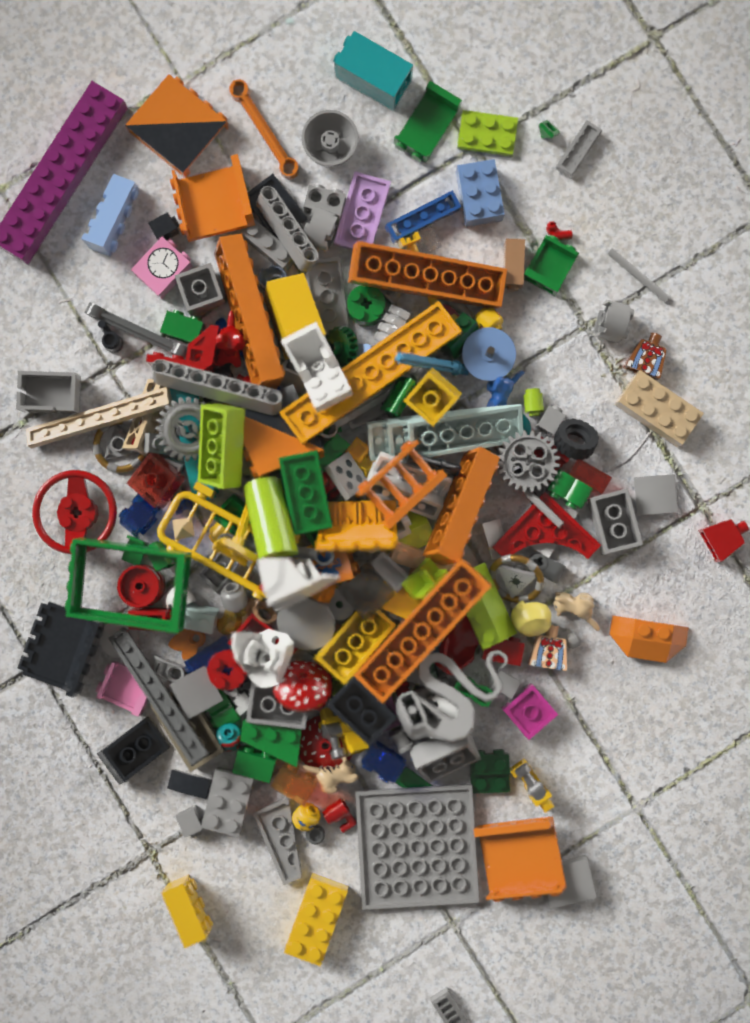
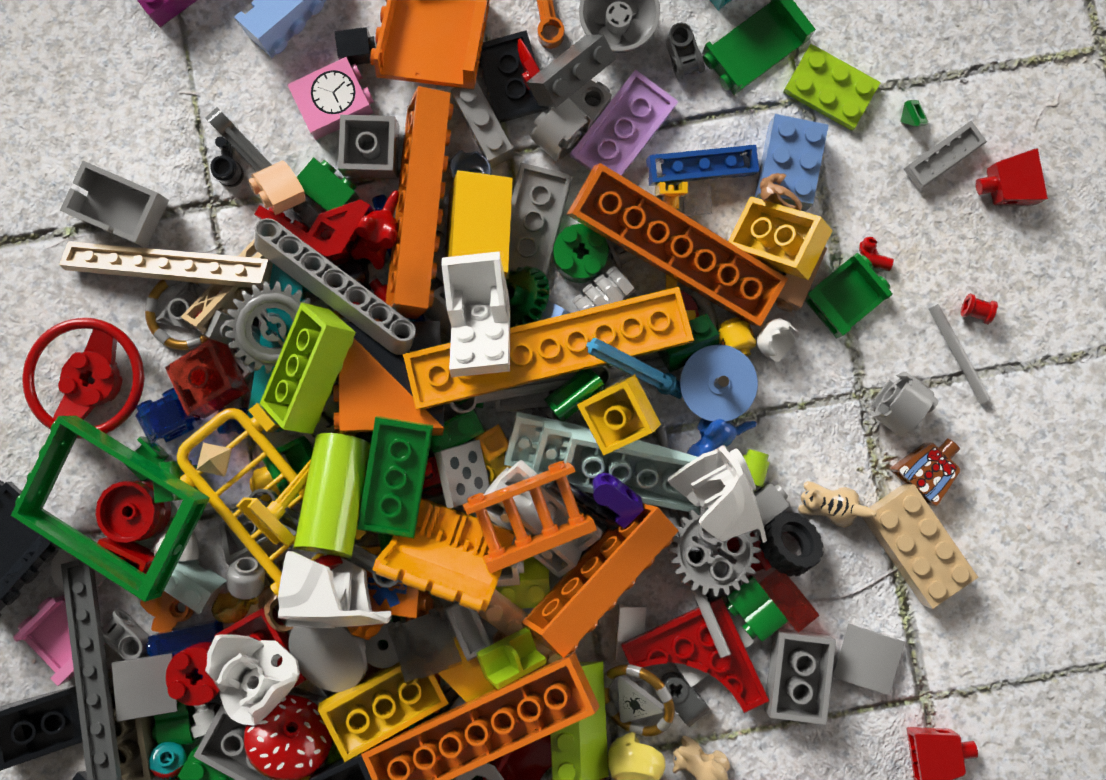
camera: 20 degrees right, 0 degrees up
(154, 337) = (277, 187): none -> light nougat brick
(287, 229) = (514, 111): light grey beam -> none
(290, 201) = (528, 63): none -> red plate
(314, 188) = (571, 70): none -> dark grey brick
(383, 150) = (684, 56): none -> dark grey piece
(453, 451) = (618, 497): none -> dark purple leg
(475, 216) = (773, 191): none -> medium nougat piece
(492, 243) = (781, 236): none -> yellow brick
(515, 311) = (775, 339): none -> white hair
(518, 419) = (725, 487): none -> white piece
(598, 404) = (838, 505): none -> tan animal
(630, 148) = (1015, 180): none -> red torso
(639, 240) = (979, 308): none -> red bush

